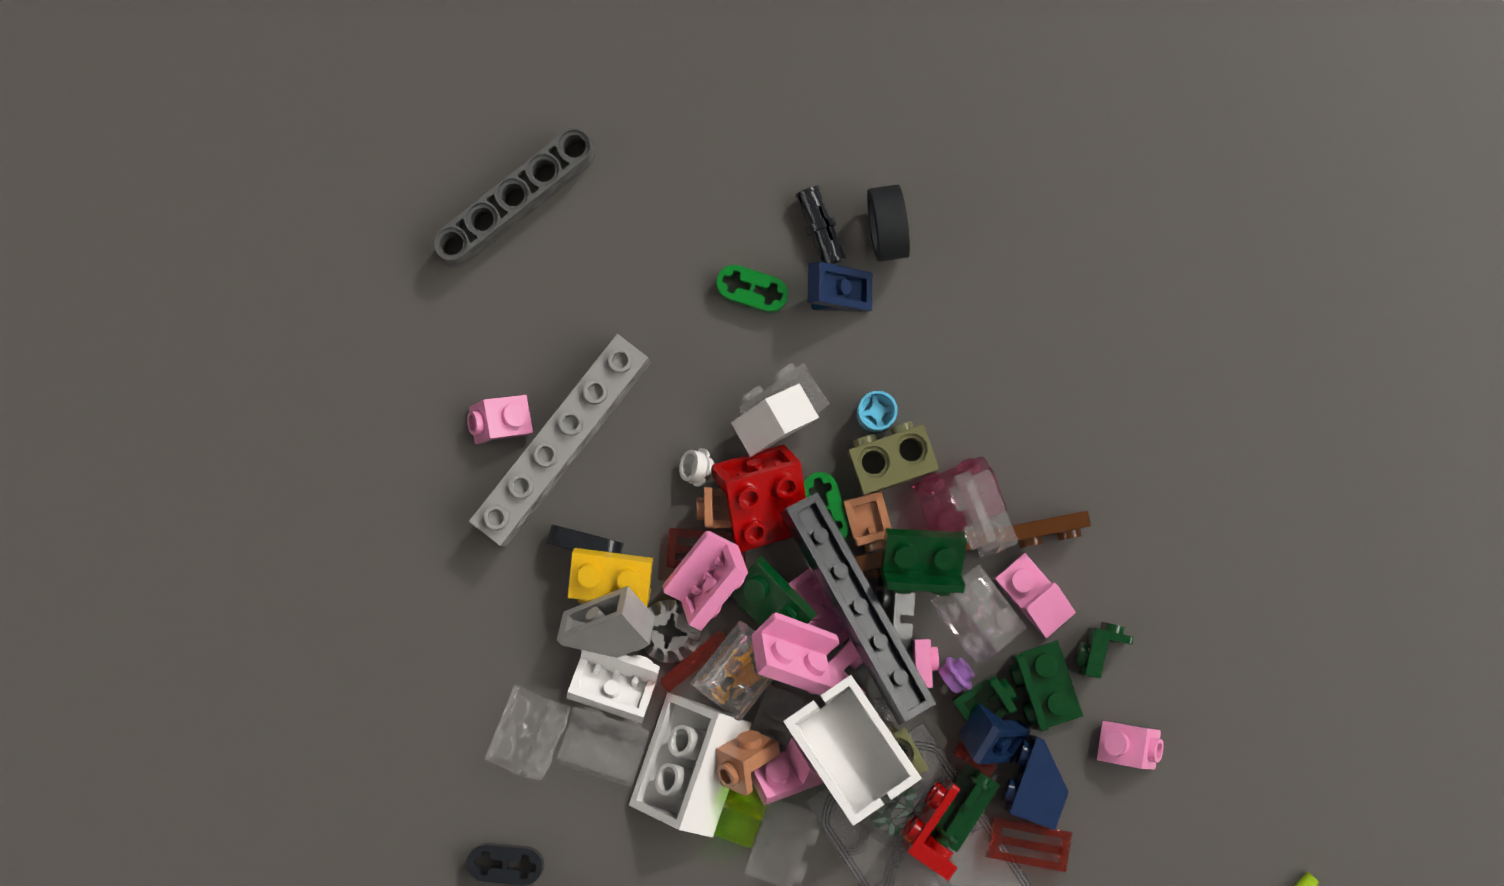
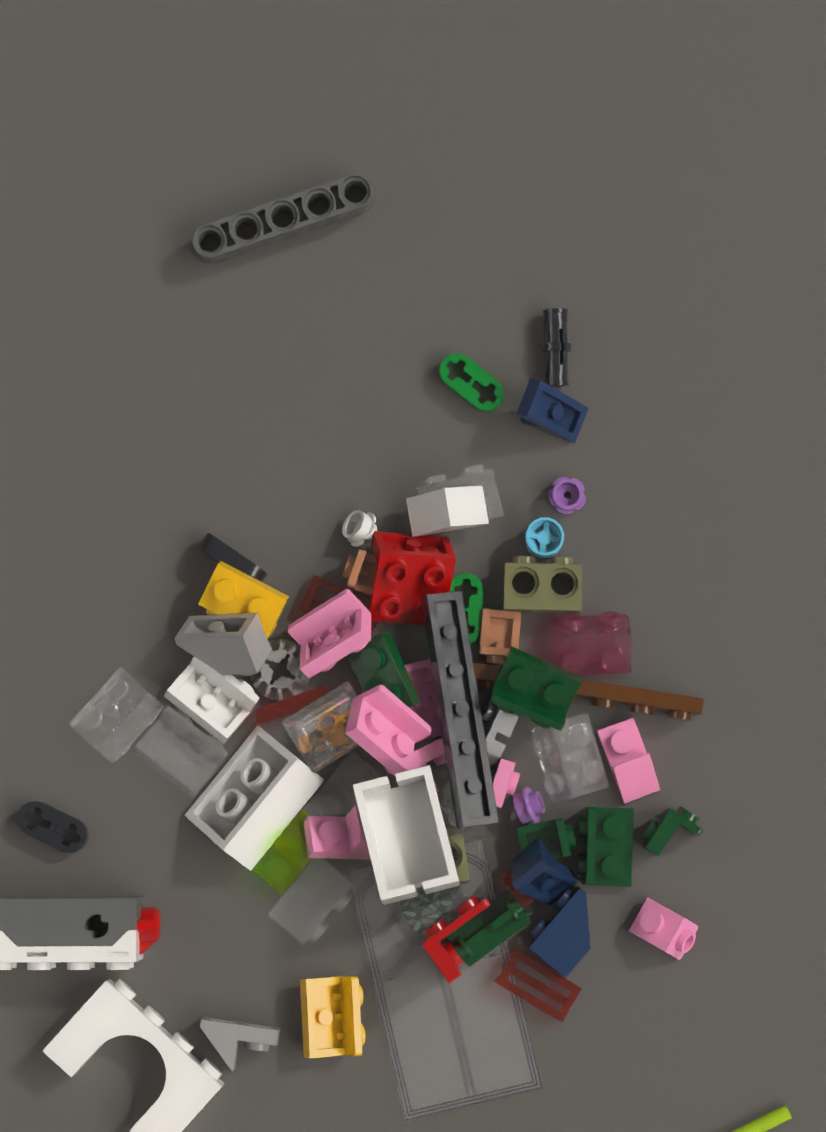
camera: 20 degrees right, 0 degrees up
(499, 419) = (195, 418): bright pink bracket -> none
(560, 441) = (244, 459): light grey brick -> none
(741, 757) = (305, 805): nougat bracket -> none
(888, 223) = (618, 367): black tyre -> none
(890, 355) = (563, 485): none -> medium lavender plate
(984, 512) = (607, 664): clear bracket -> none

